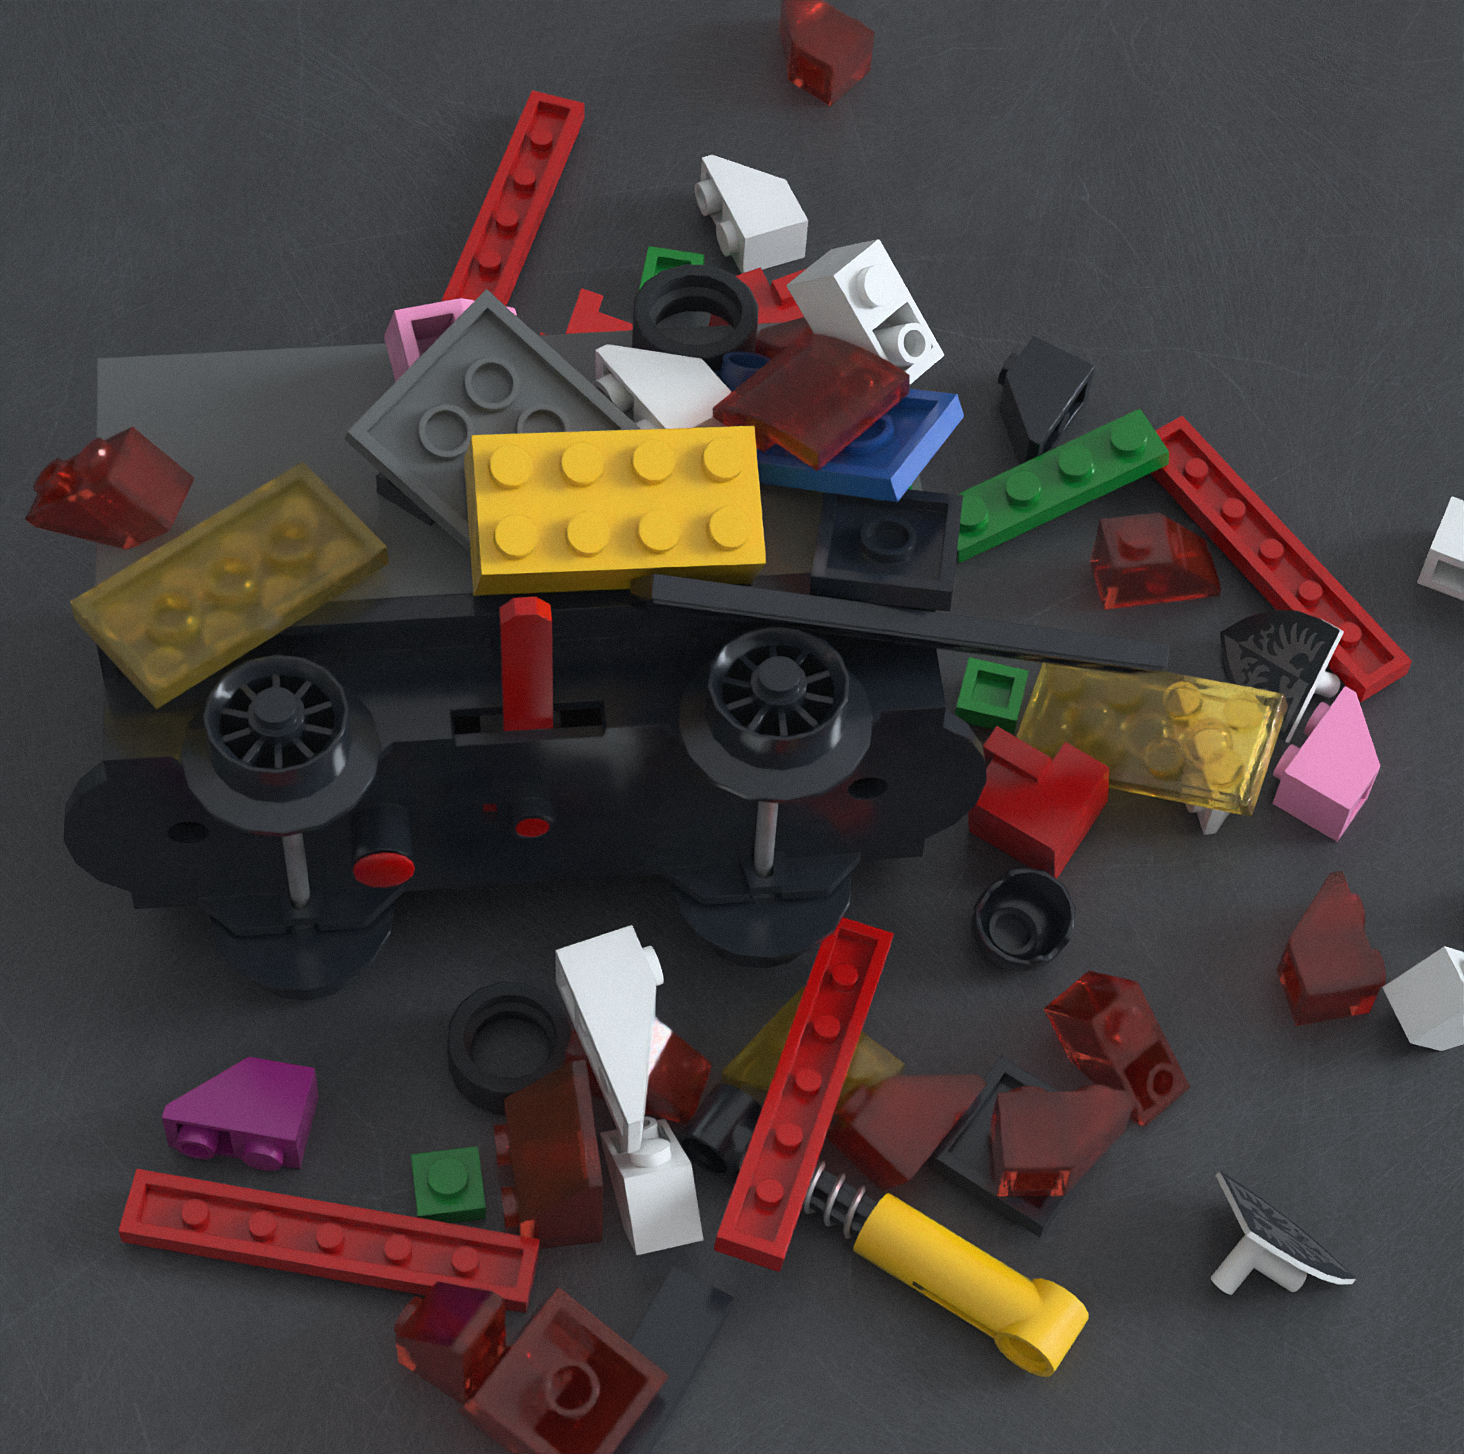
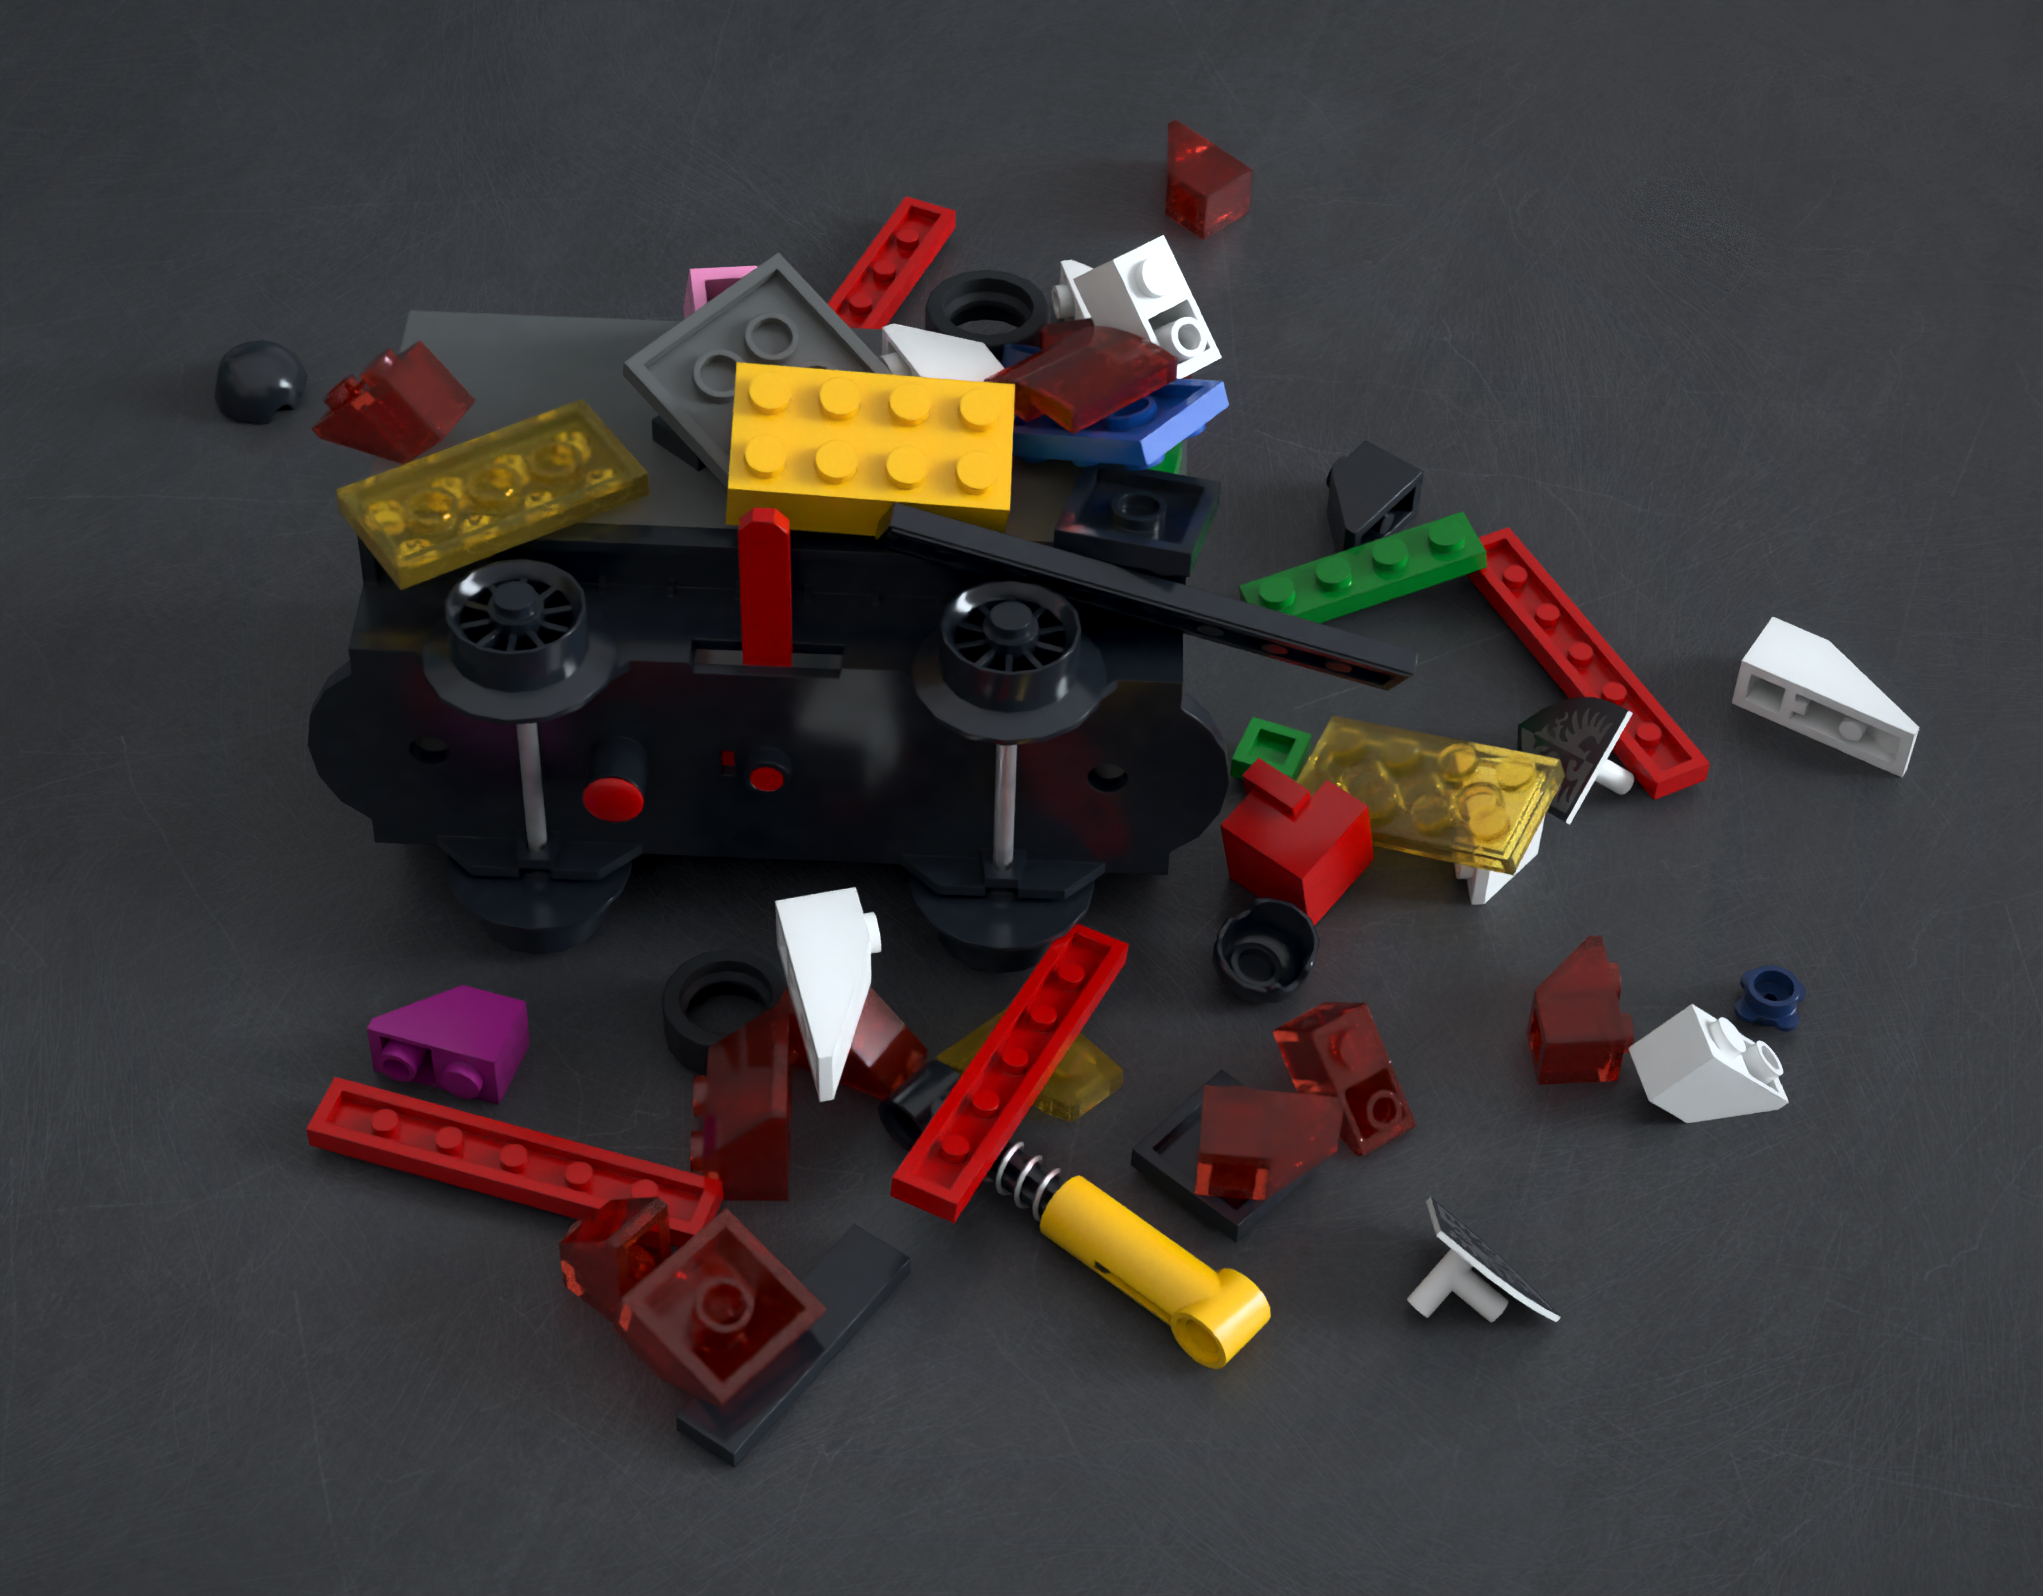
camera: 10 degrees right, 10 degrees down
(449, 1185) = (644, 1128): green plate -> none
(654, 1189) = (846, 1148): white slope -> none
(900, 1122) = (1106, 1113): clear red slope -> none
(1151, 562) = (1458, 652): clear red slope -> none
(1332, 770) = (1608, 853): bright pink slope -> none

